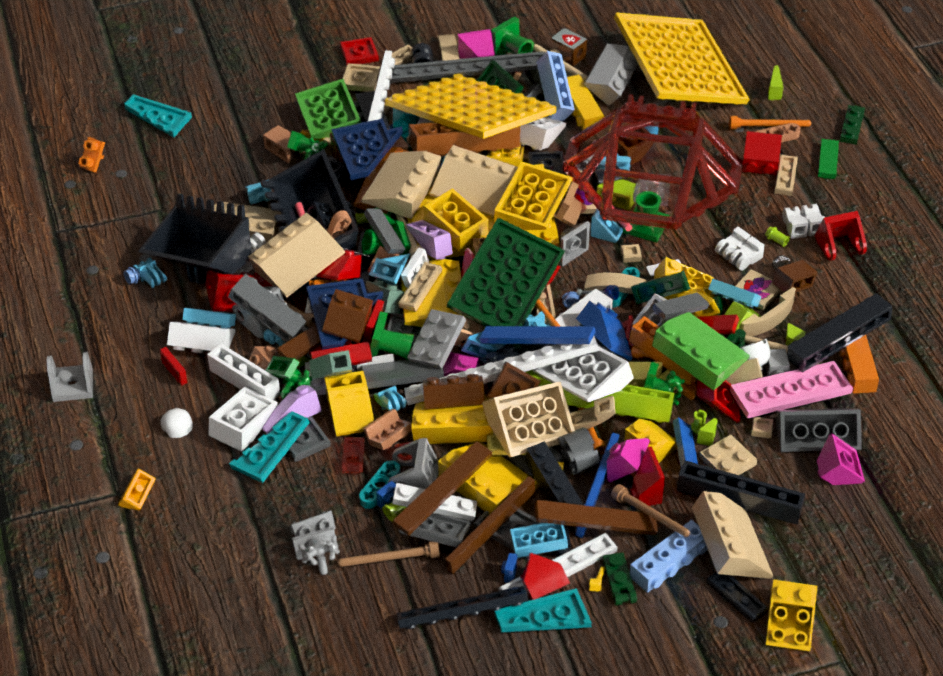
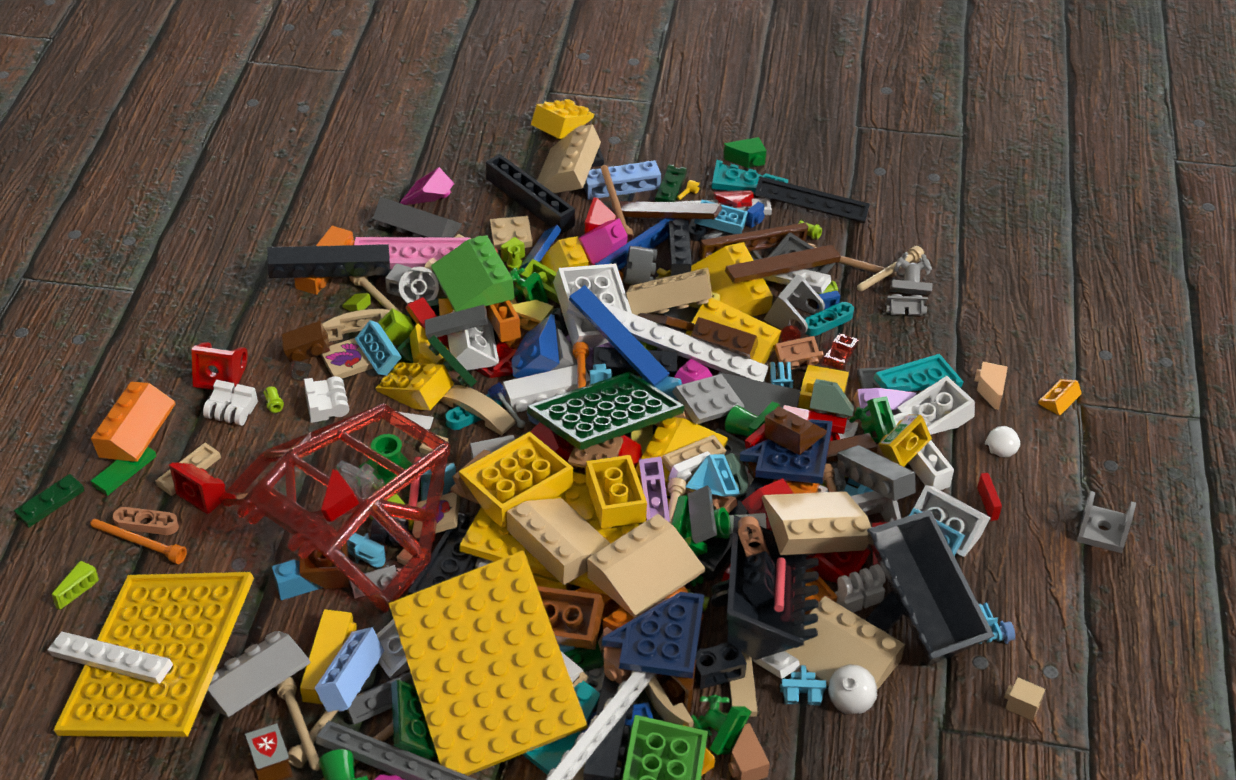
camera: 155 degrees left, 0 degrees up
(106, 236) = (1024, 698): none -> tan brick
(203, 470) = (991, 382): none -> light nougat slope
(229, 192) = (852, 689): none -> white cylinder
(255, 345) = (905, 439): none -> yellow slope
(328, 586) = (913, 256): none -> tan piece
(446, 576) = (813, 230): none -> lime pin
(566, 649) = (745, 152): none -> green slope
(633, 120) = (338, 497): none -> red slope
(706, 49) = (110, 657): none -> white plate
(852, 176) = (132, 422): none -> orange slope

